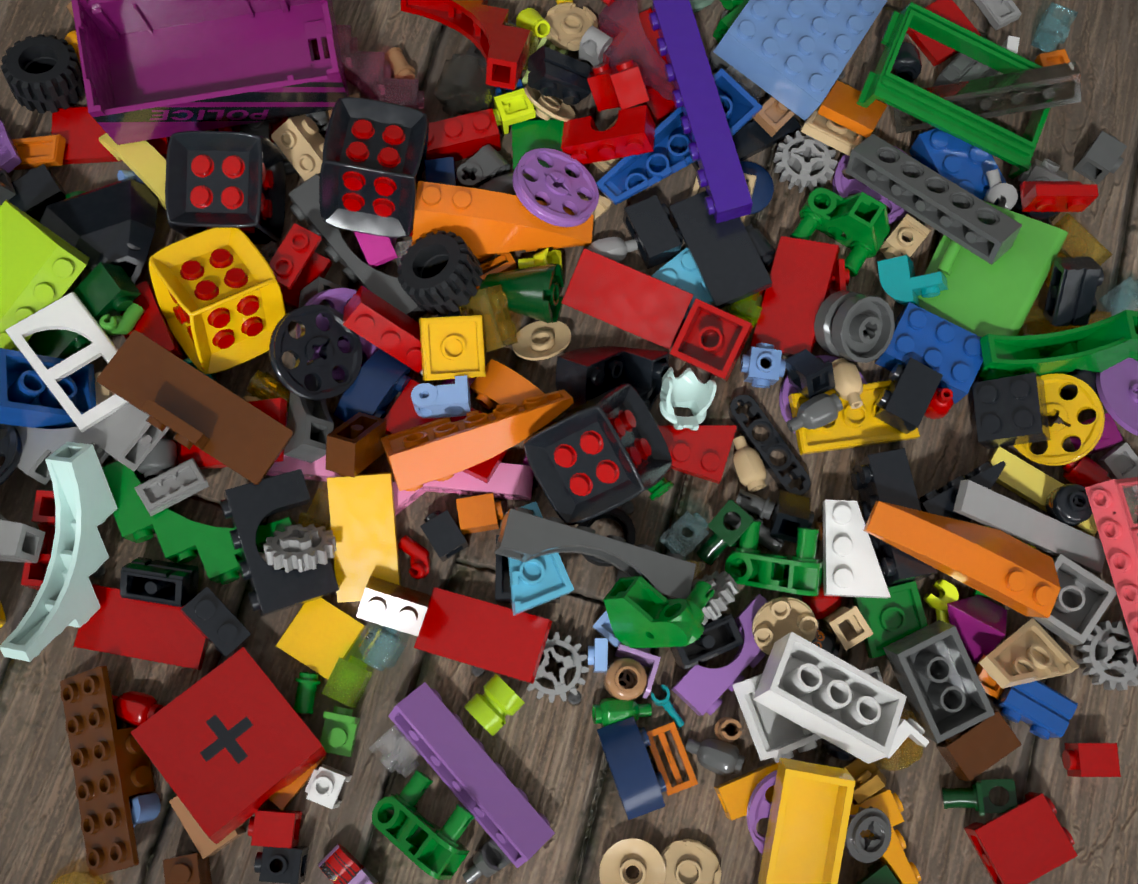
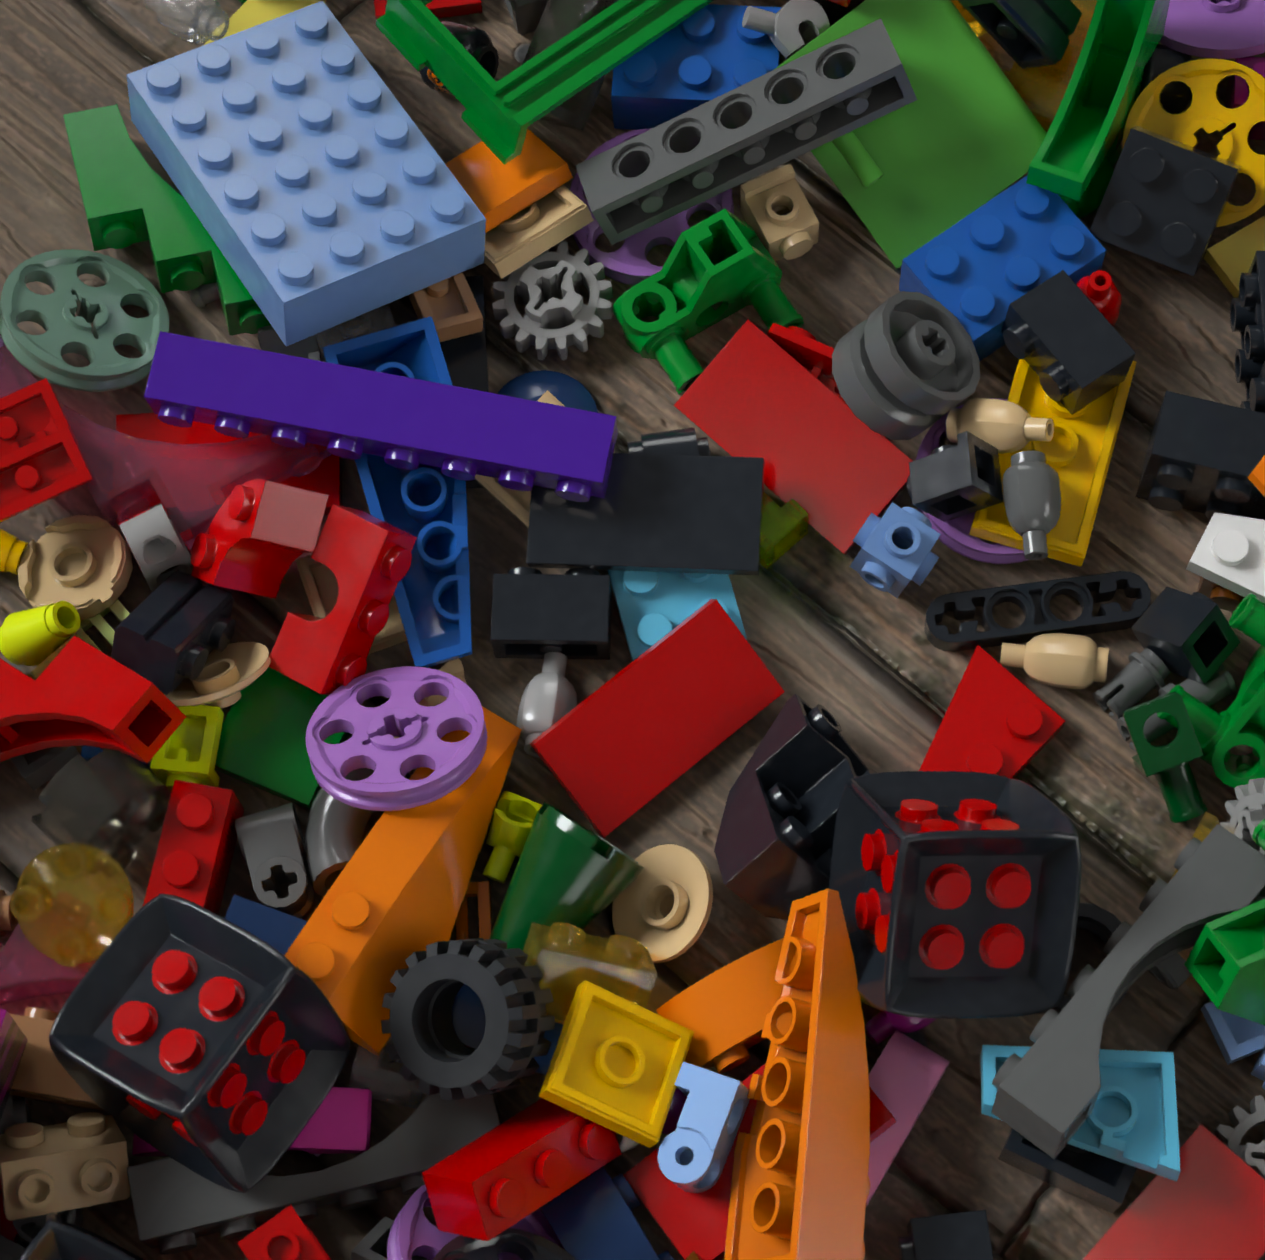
camera: 55 degrees left, 5 degrees down
(417, 88) = (72, 902): none -> clear yellow dish
(479, 513) = (936, 1167): orange brick -> none
(677, 542) = (1130, 845): clear light blue brick -> none
(685, 392) = (881, 693): light aqua helmet -> none
(711, 339) = (812, 610): red brick -> none
(900, 283) = (859, 259): teal brick -> none

